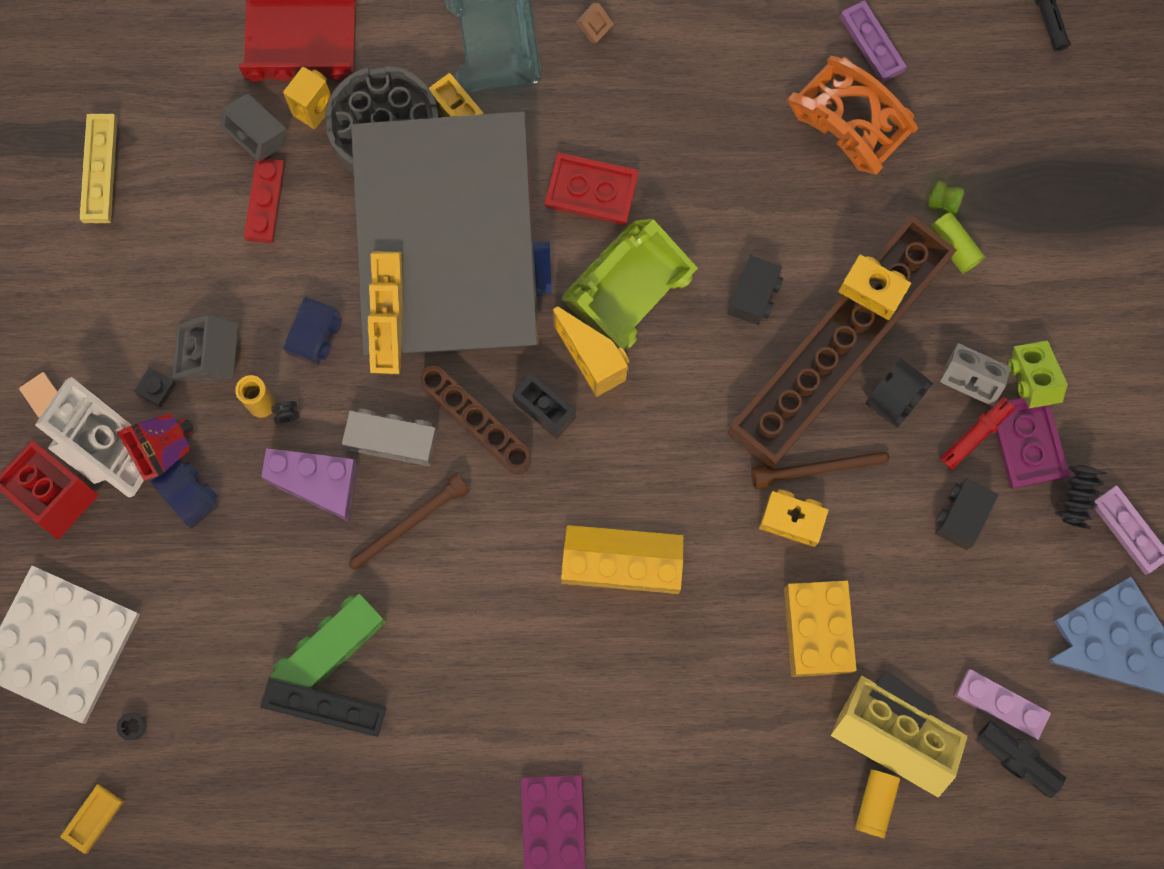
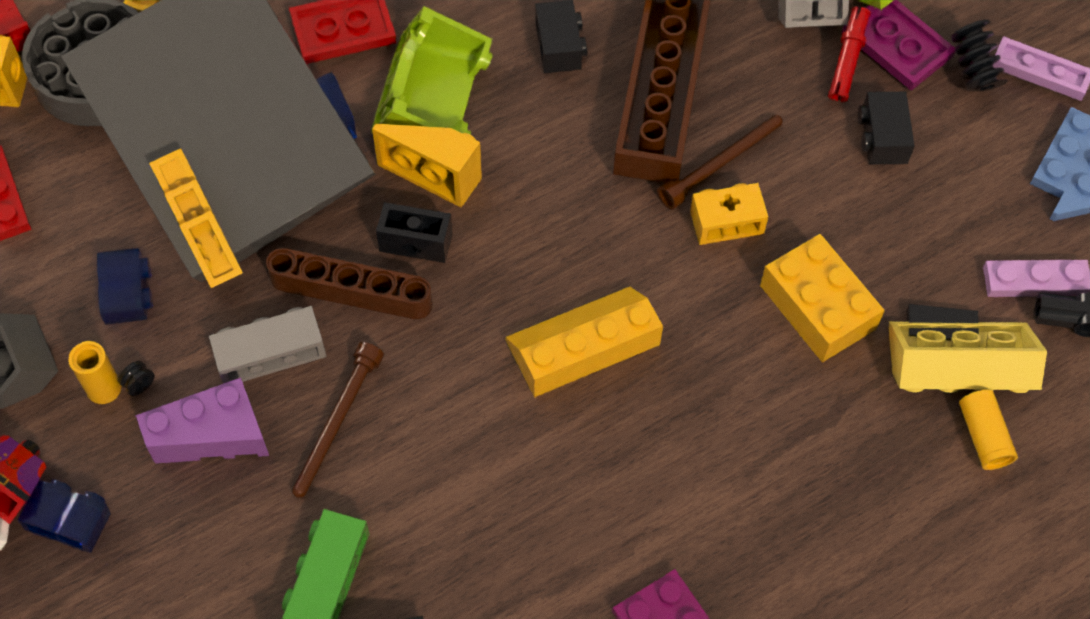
camera: 30 degrees left, 15 degrees down
(898, 393) = (752, 52): black brick -> none

